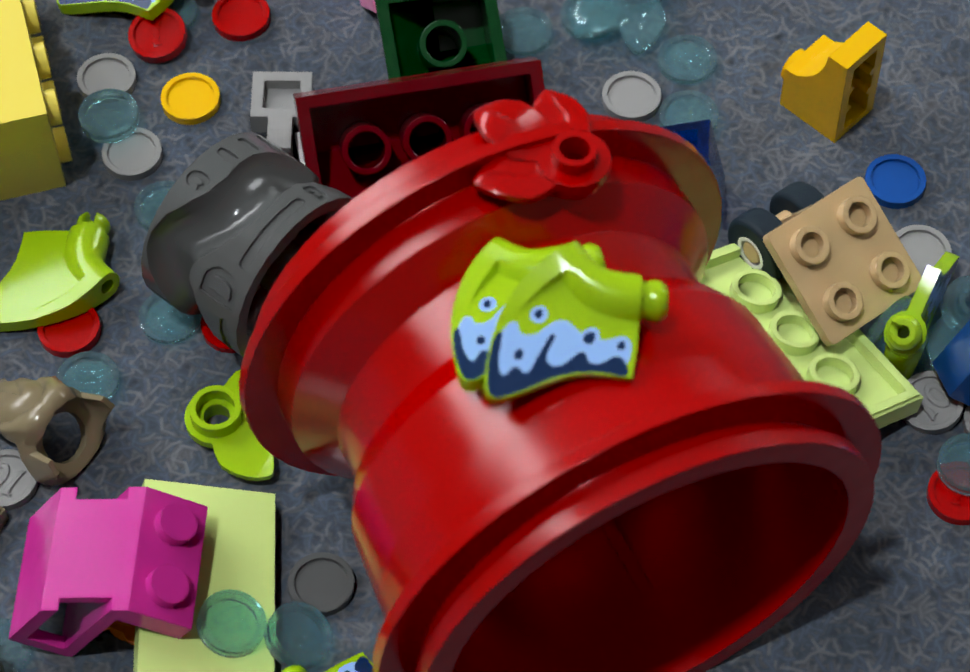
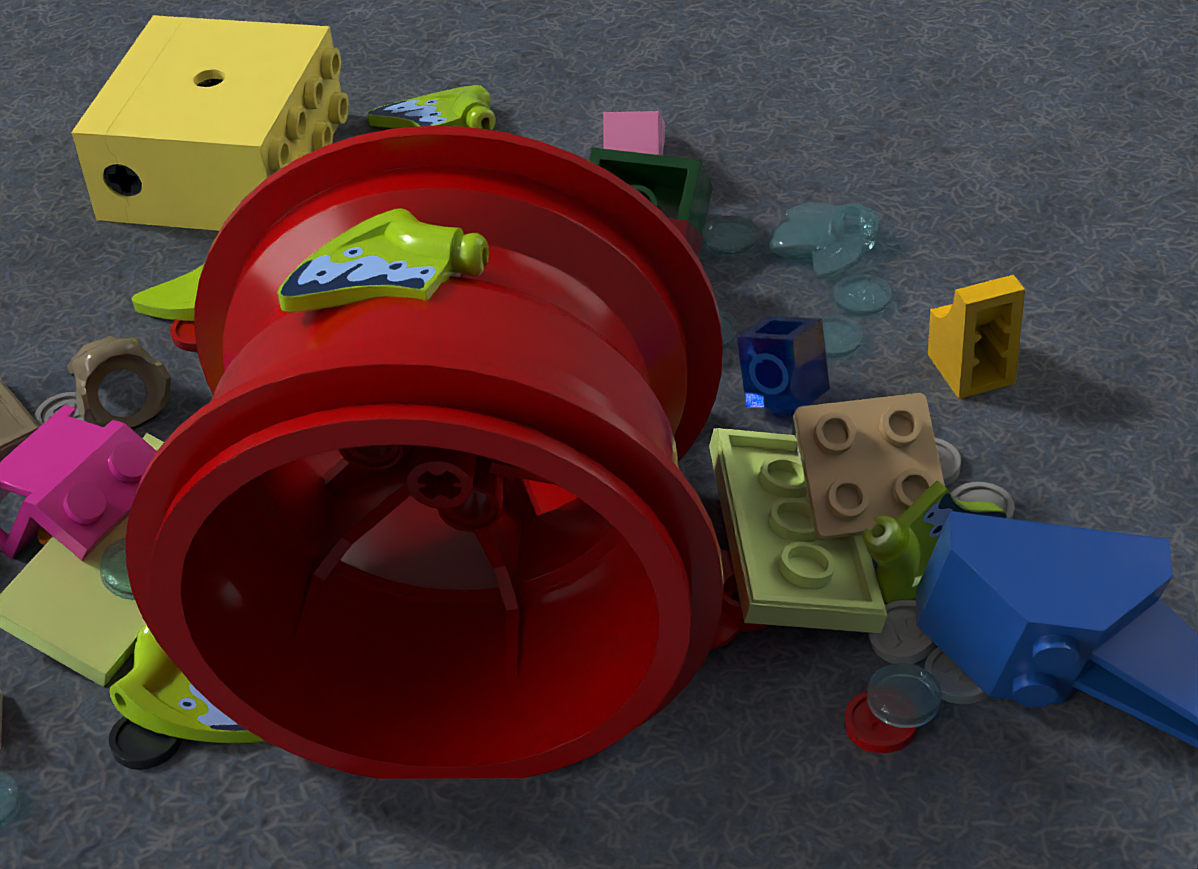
camera: 30 degrees right, 15 degrees down
(91, 373) = (183, 368): clear light blue piece -> none
(547, 167) = (504, 169): red plate -> none
(569, 325) = (397, 276): lime arm -> none
(631, 96) = (791, 302): light grey piece -> none
(895, 181) = (996, 444): blue piece -> none

